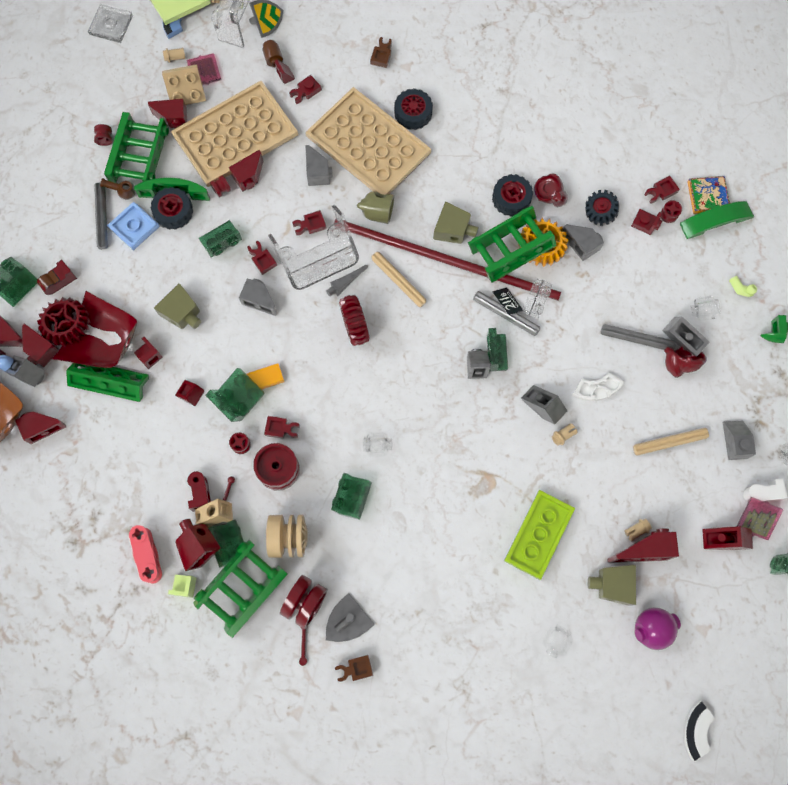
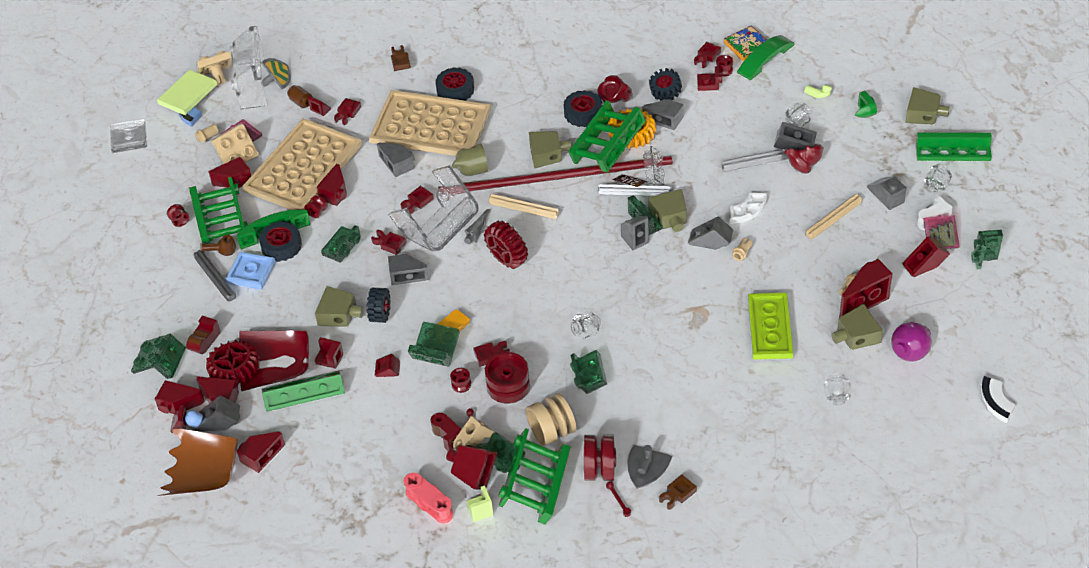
camera: 25 degrees left, 25 degrees down
(211, 326) = (378, 305): none -> black wheel
(523, 355) = (669, 209): none -> olive torso

